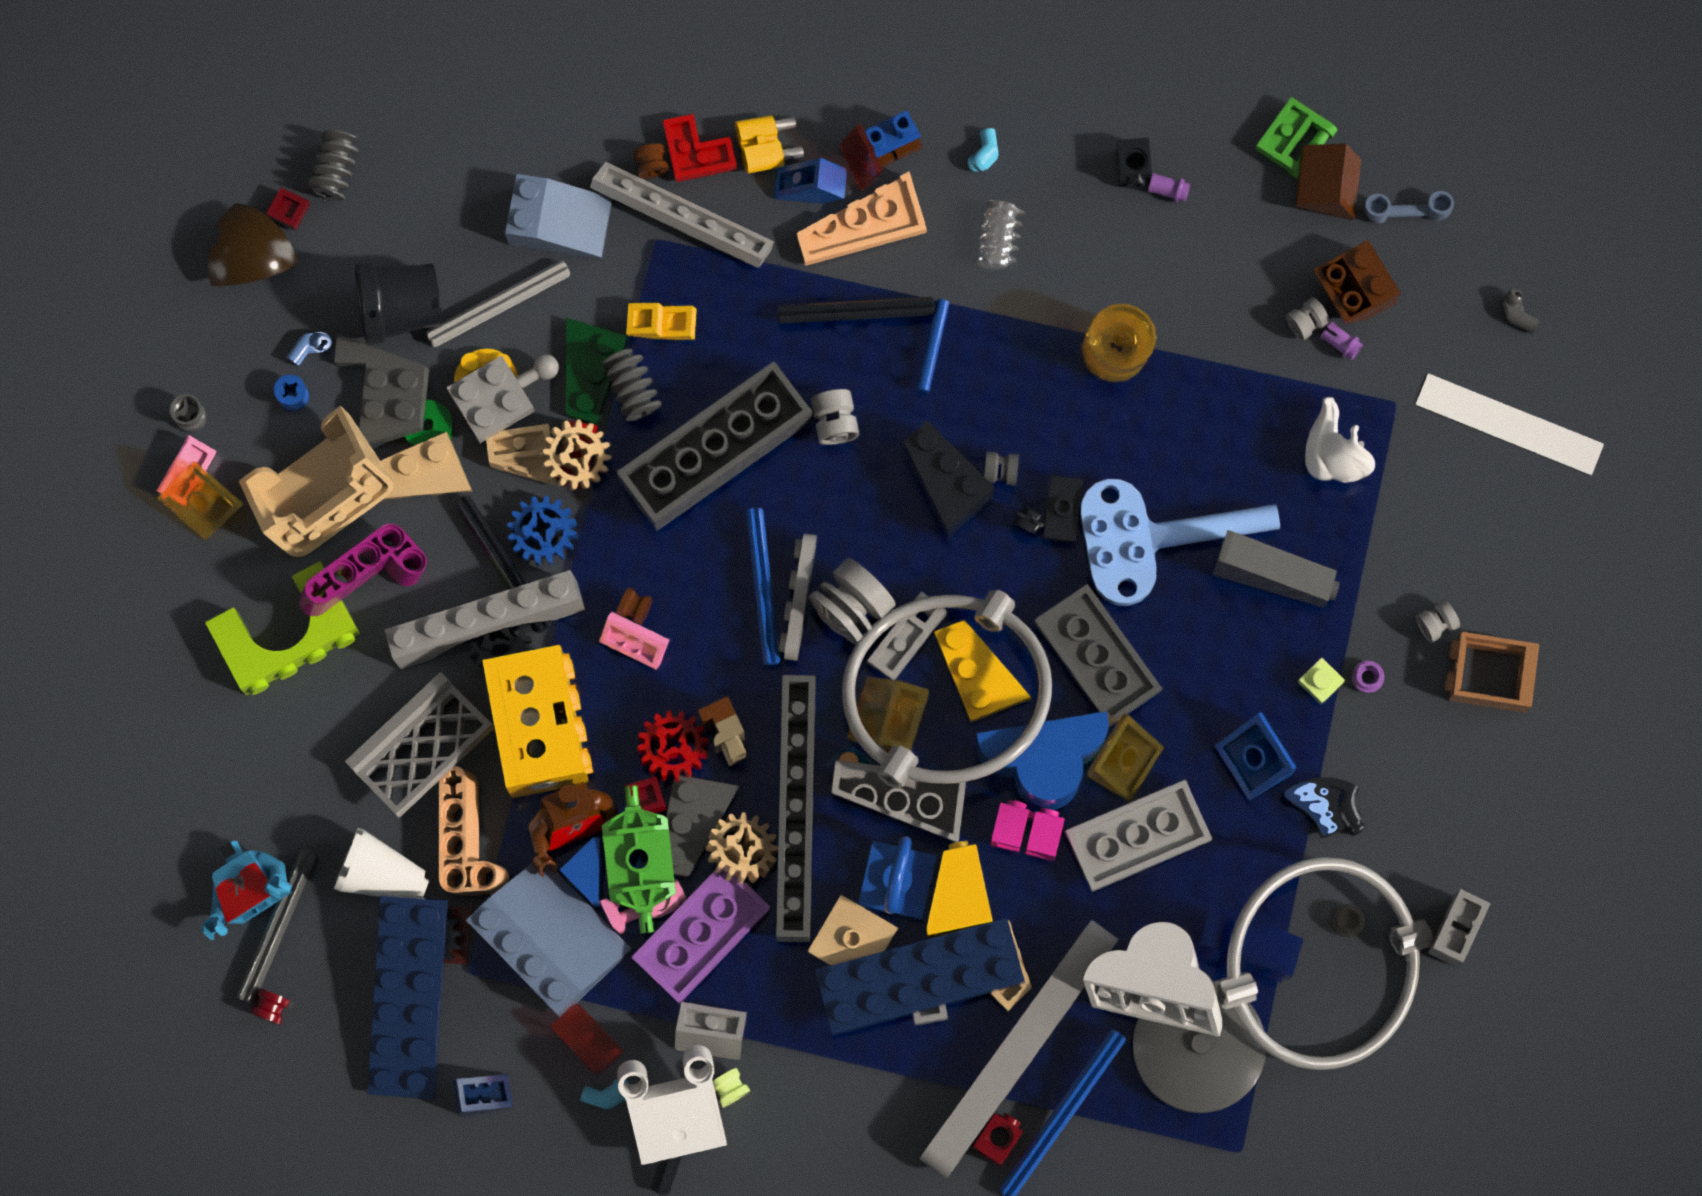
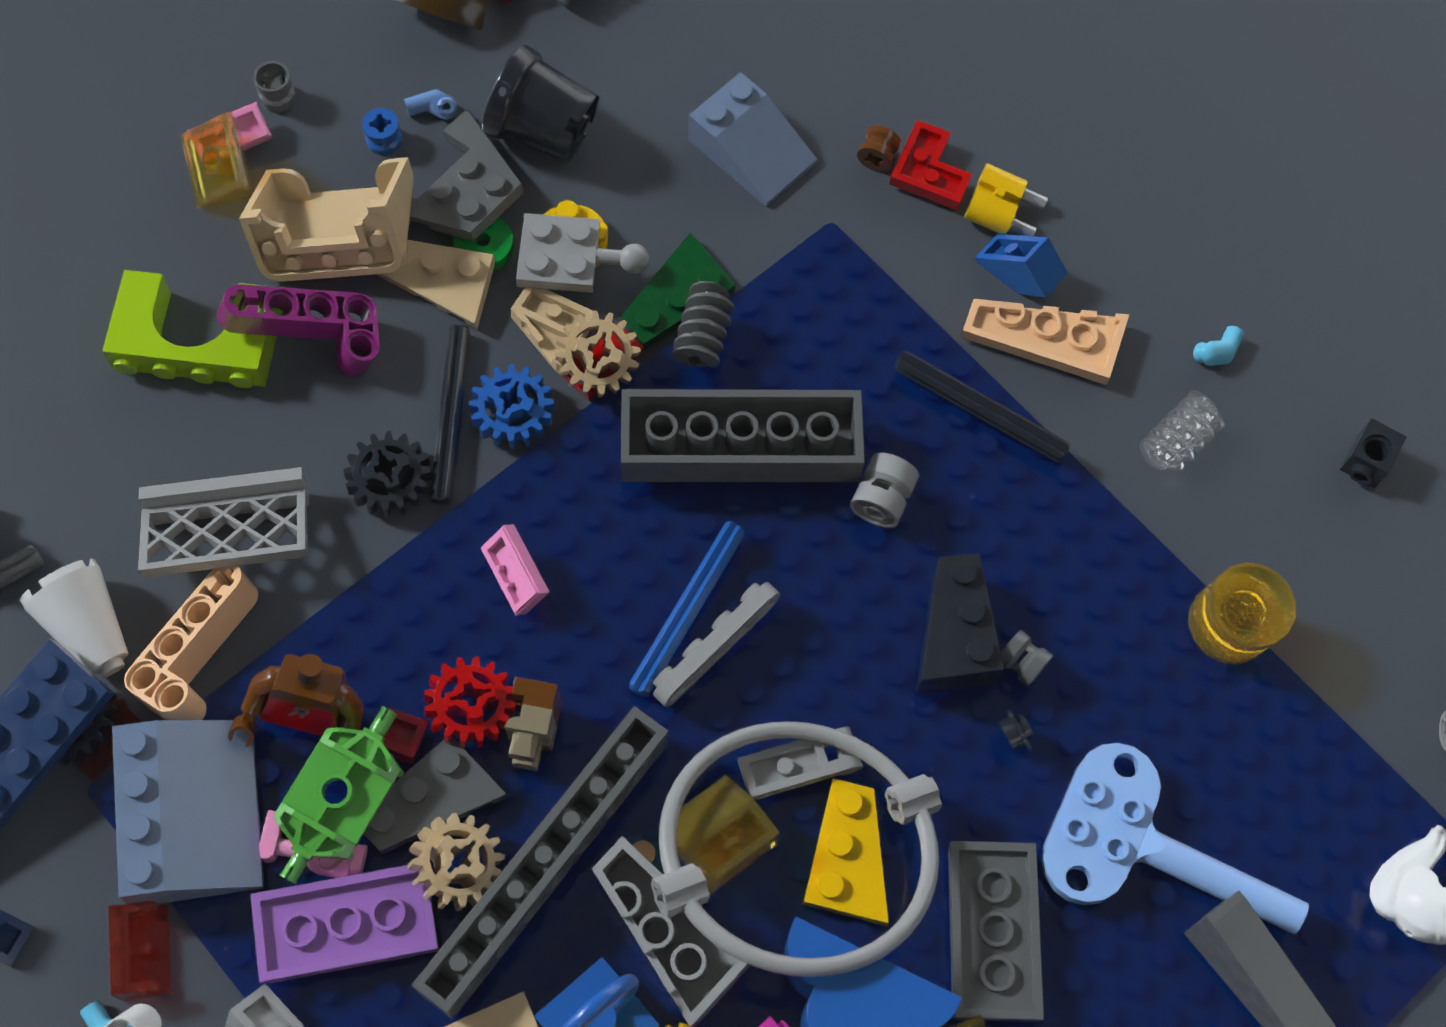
camera: 30 degrees right, 10 degrees down
(498, 303) = (636, 180): light grey axle -> none
(529, 603) = (450, 464): light grey arch -> none
(537, 721) = (350, 577): yellow piece -> none
(585, 871) = (276, 768): blue slope -> none
(634, 606) = (541, 536): reddish brown wheel -> none
(661, 322) = (776, 292): yellow slope -> none
(682, 214) = (873, 214): light grey plate -> none
(855, 597) = (766, 682): light grey wheel -> none
(861, 157) = (1089, 268): clear red piece -> none
(895, 135) = (1119, 264): blue hips -> none
(933, 346) = (1037, 492): blue bar -> none
(1062, 509) = (1062, 747): black plate -> none
(1169, 187) = (1395, 503): medium lavender pin -> none

